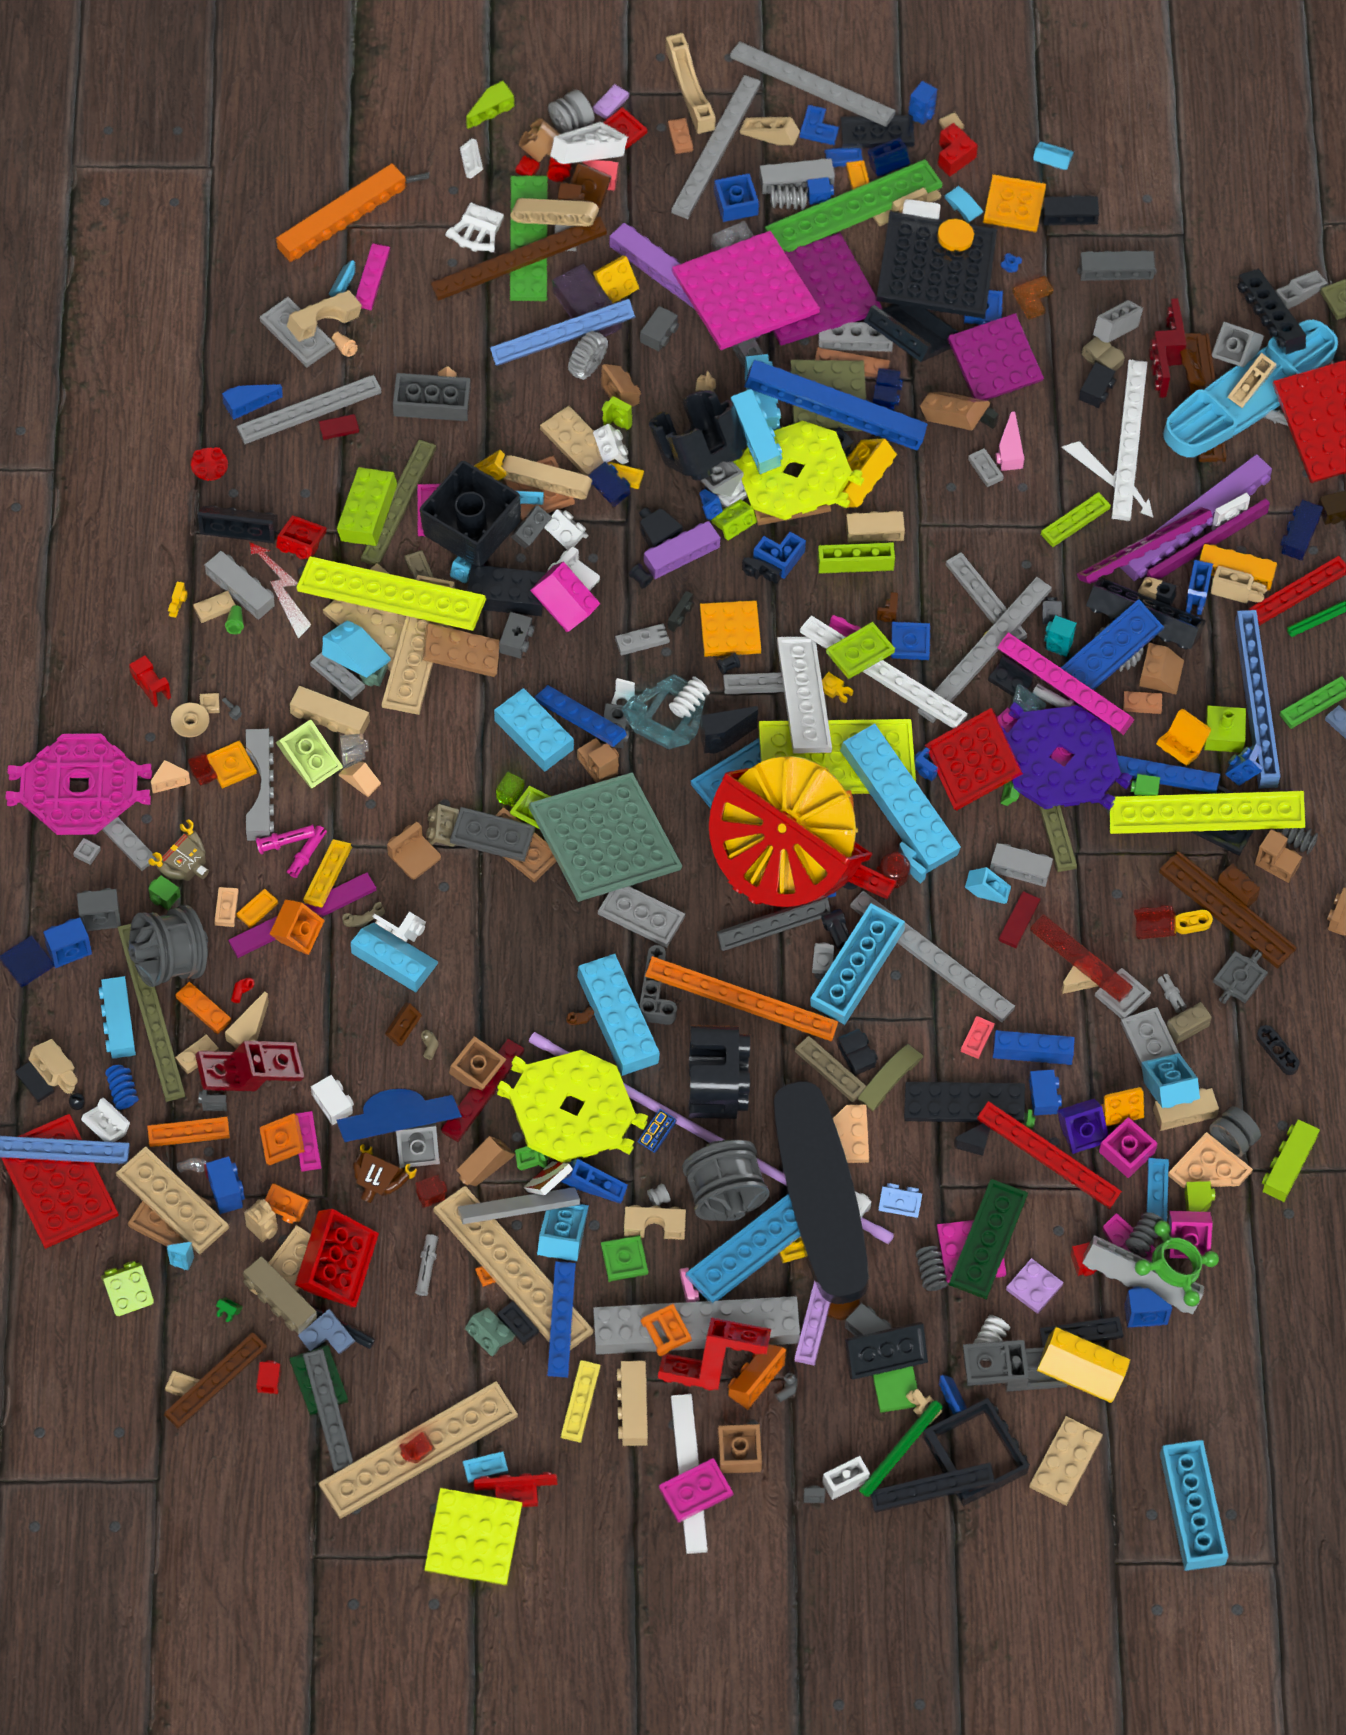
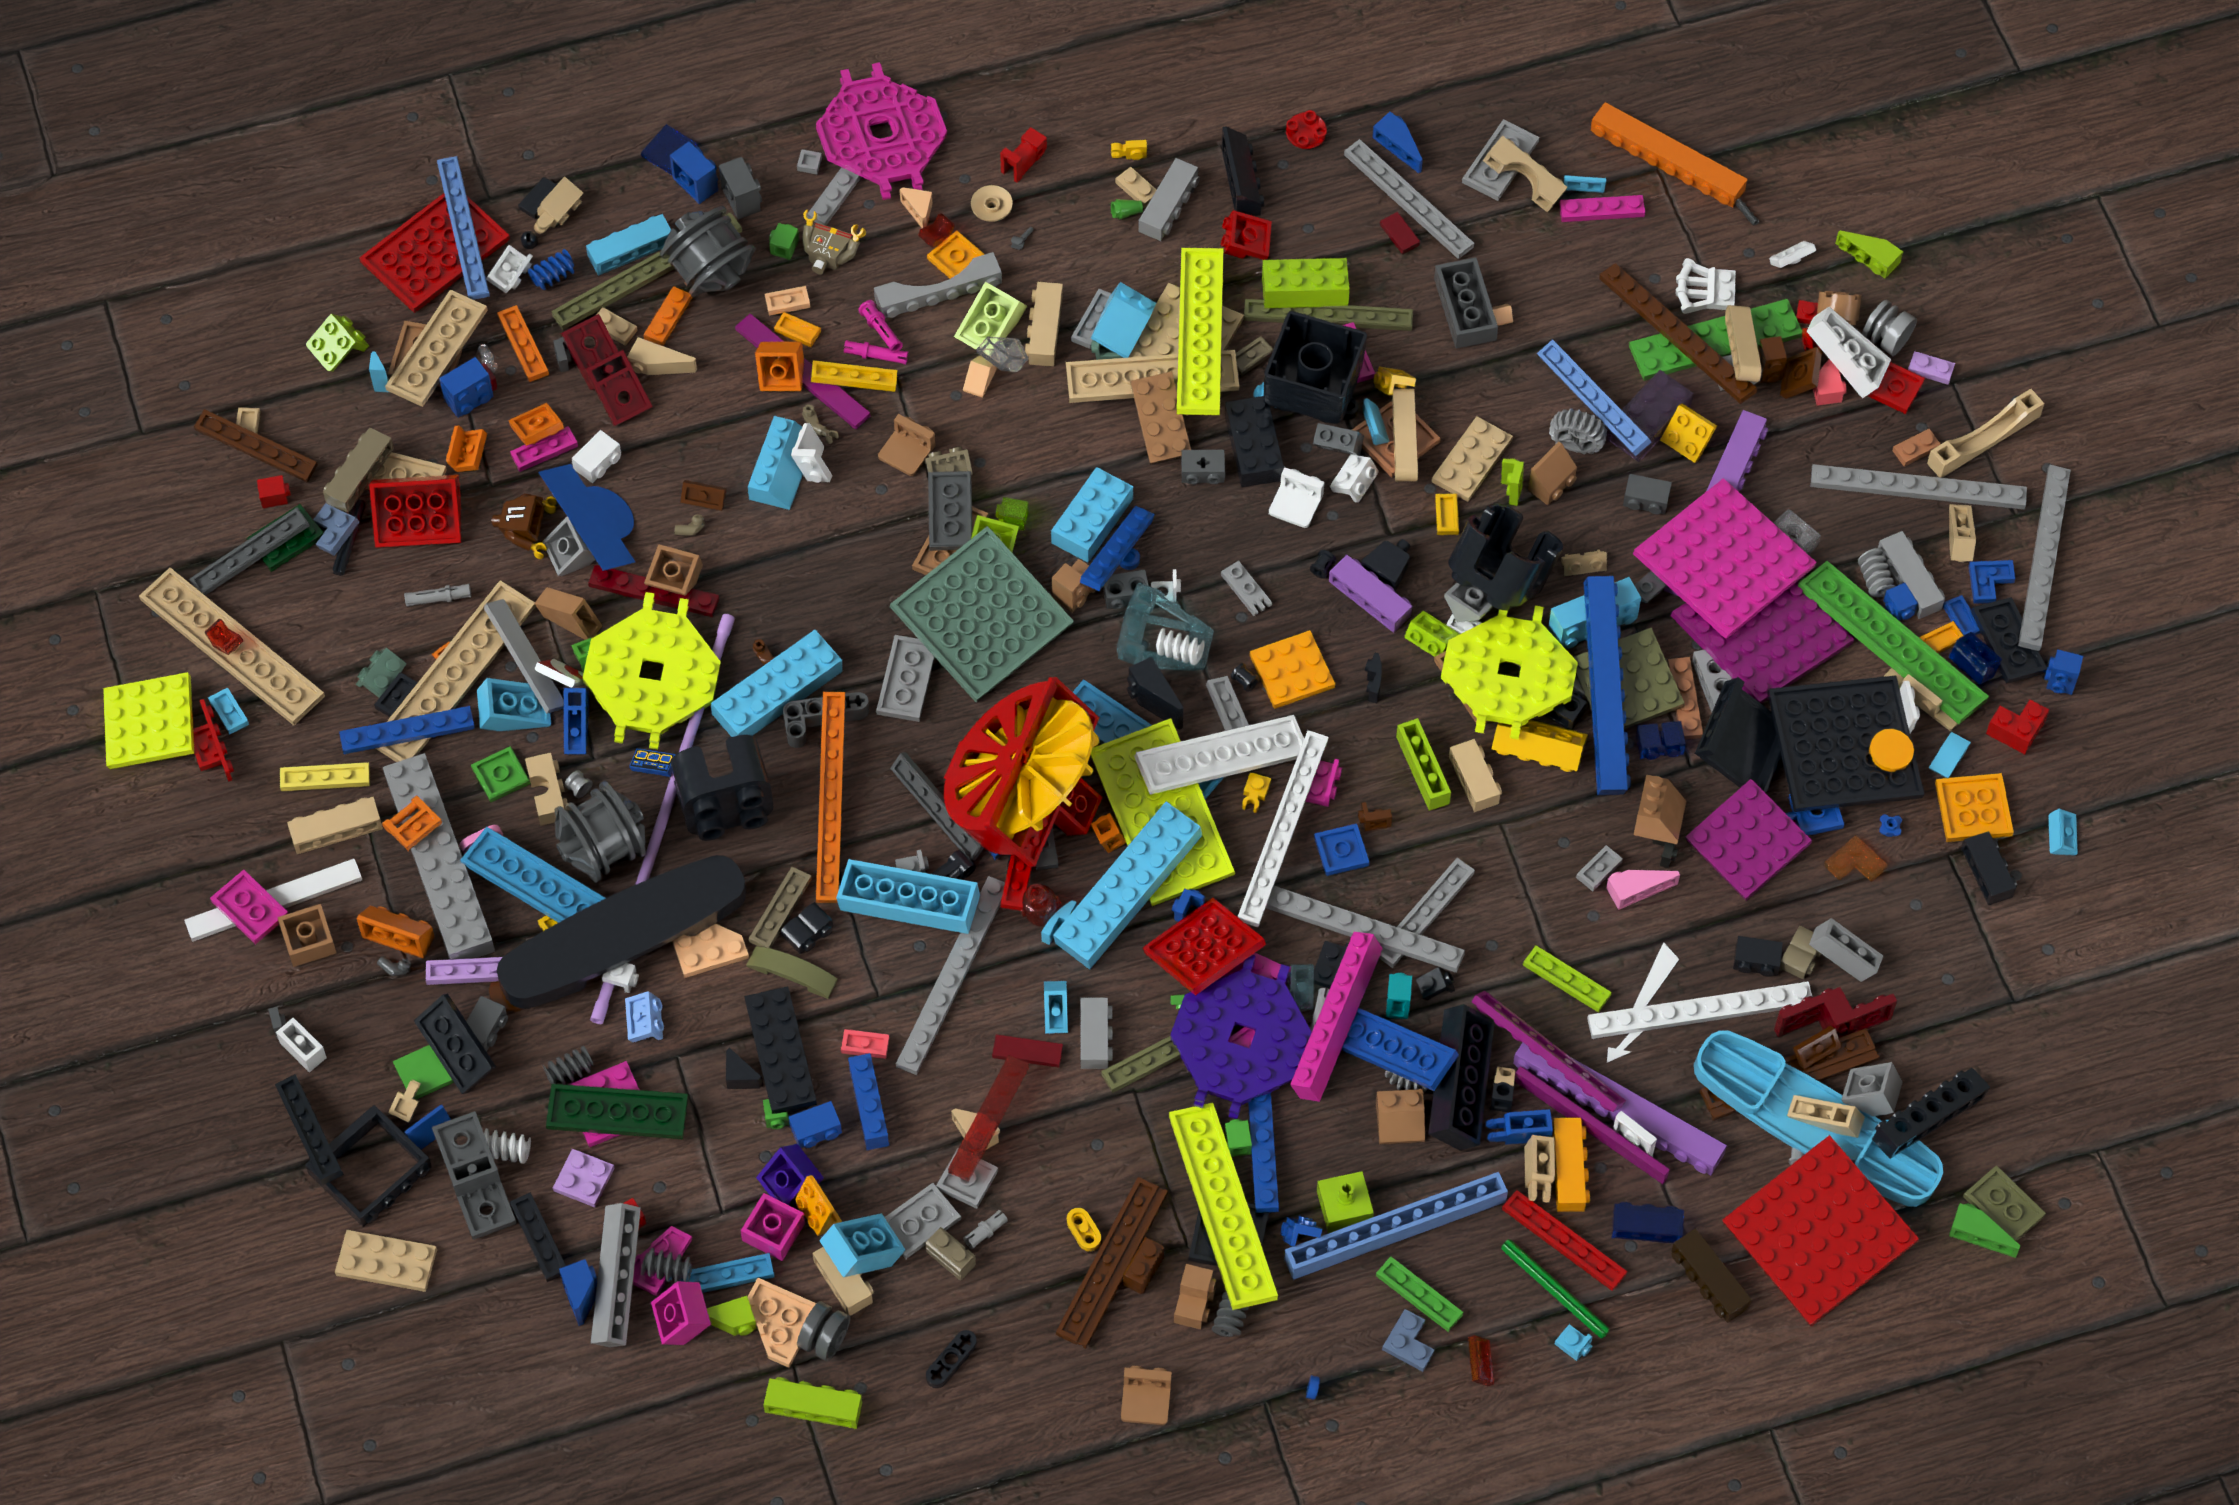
camera: 75 degrees right, 0 degrees up
(210, 702) = (1021, 217): tan tile -> none
(228, 1306) = (339, 435): green tile -> none
(241, 987) = (699, 341): red arm -> none
(261, 1220) = (436, 430): tan hinge -> none
(294, 614) = (1158, 260): sticker -> none
(345, 345) = (1501, 209): light nougat cone -> none
(430, 1191) = (520, 573): clear red brick -> none
(565, 596) = (1259, 492): dark pink slope -> none
(610, 444) = (1476, 489): white bracket -> none
(610, 484) = (1423, 500): clear blue brick -> none
(678, 615) = (1292, 613): pearl dark grey plate -> none
(708, 1372) = (398, 875): red bracket -> none
(711, 504) = (1434, 606): blue bracket -> none
(736, 197) = (1851, 520): blue brick -> none
(756, 430) = (1526, 607): medium azure brick -> none
(782, 555) = (1398, 693): blue brick -> none
(860, 650) = (1296, 793): lime plate -> none
(900, 1449) = (348, 1088): green axle -> none
(948, 120) = (2058, 715): tan tile -> none
(1049, 1155) = (737, 1147): red plate -> none
(1083, 1364) = (494, 1243): yellow slope -> none
(1117, 265) = (1933, 936): dark grey brick -> none
(1142, 702) = (1353, 1109): nougat plate -> none
(1155, 922) = (1066, 1189): clear red bracket -> none
(1166, 1273) = (594, 1325): bright green piece -> none
(1185, 737) = (1311, 1160): light orange bracket -> none
(1193, 1505) = (361, 1397): medium azure brick -> none
(1240, 977) = (1029, 1296): dark grey plate -> none
(1301, 289) = (1984, 1142): light grey slope -> none

